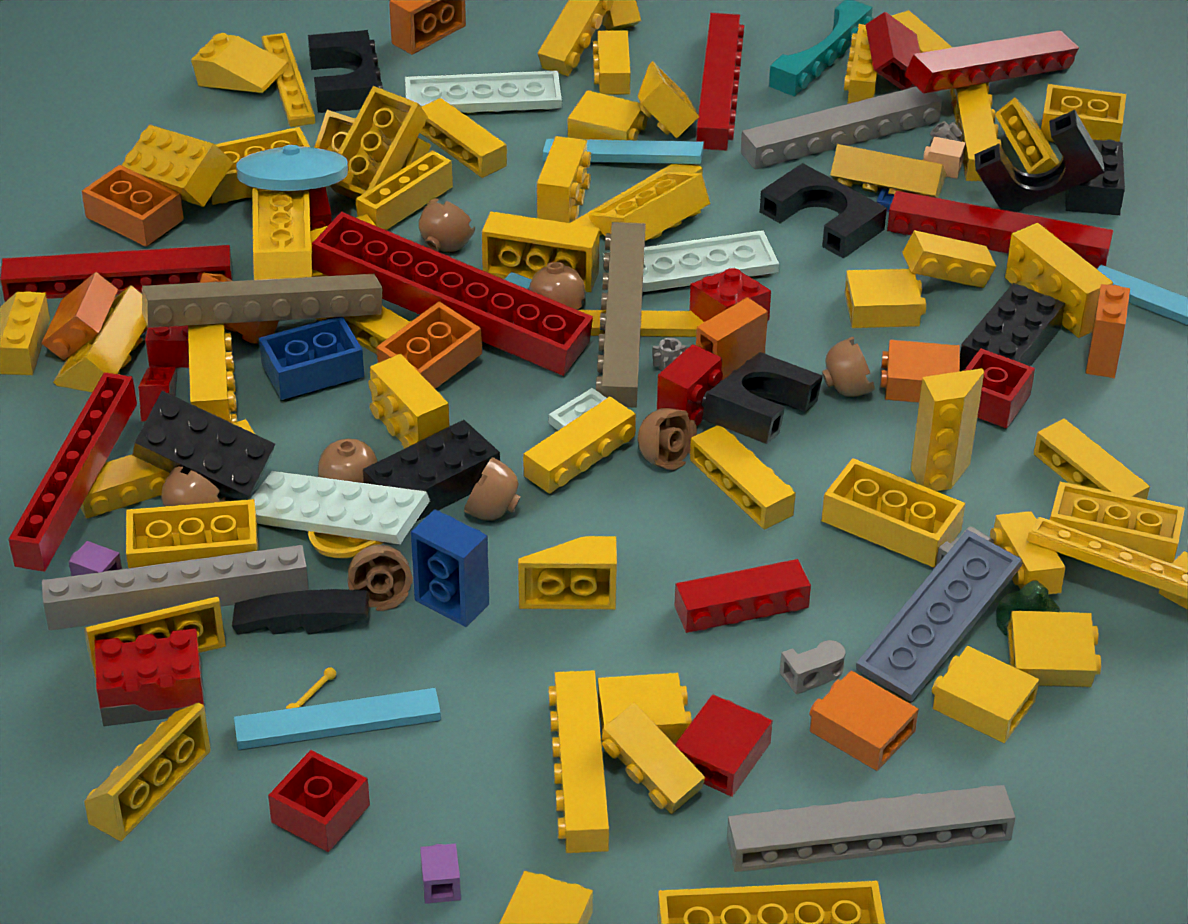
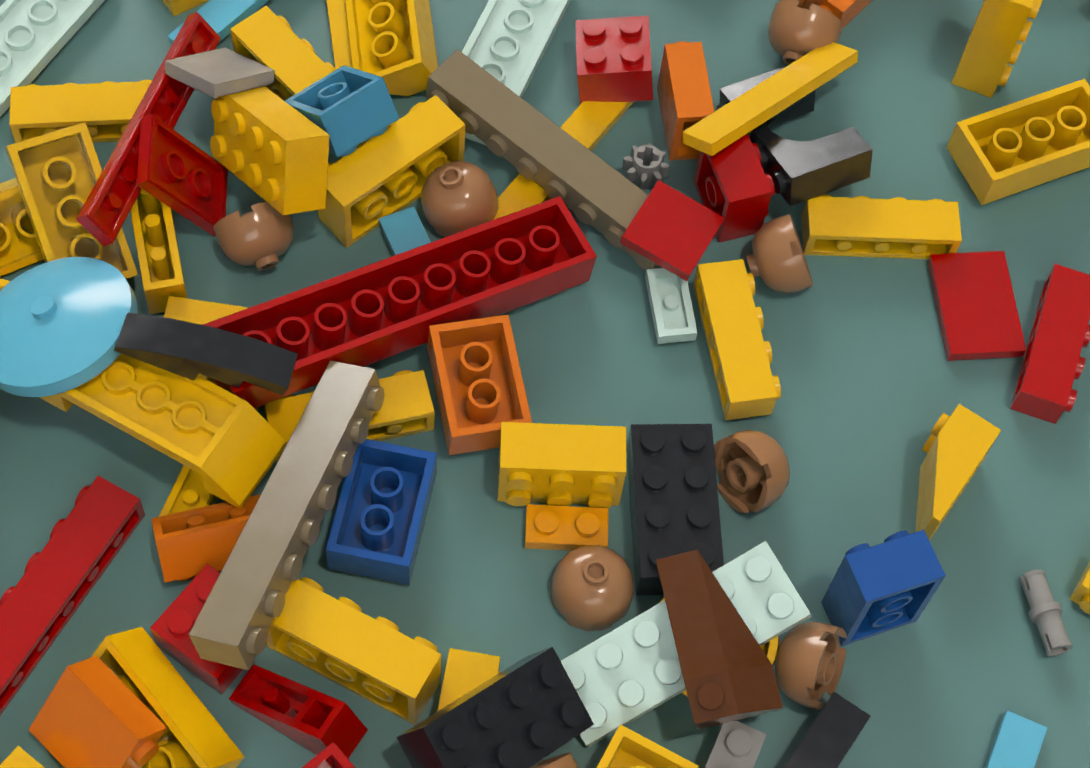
camera: 60 degrees left, 20 degrees up
(321, 215) = (206, 350): none -> black slope
(324, 510) = (718, 655): none -> reddish brown wedge
(377, 437) = (565, 527): none -> light orange plate
(446, 171) = (181, 174): none -> red tile
(456, 144) = (165, 99): none -> red tile
(491, 186) = (272, 149): none -> yellow brick
(521, 146) = (219, 72): none -> light grey tile
(526, 677) = (1045, 613): none -> light grey pin
(541, 195) = (347, 107): none -> dark azure brick
(622, 373) = (672, 230): none -> red tile
(736, 546) = (976, 305): none -> red tile
(765, 361) = (769, 98): none -> yellow tile

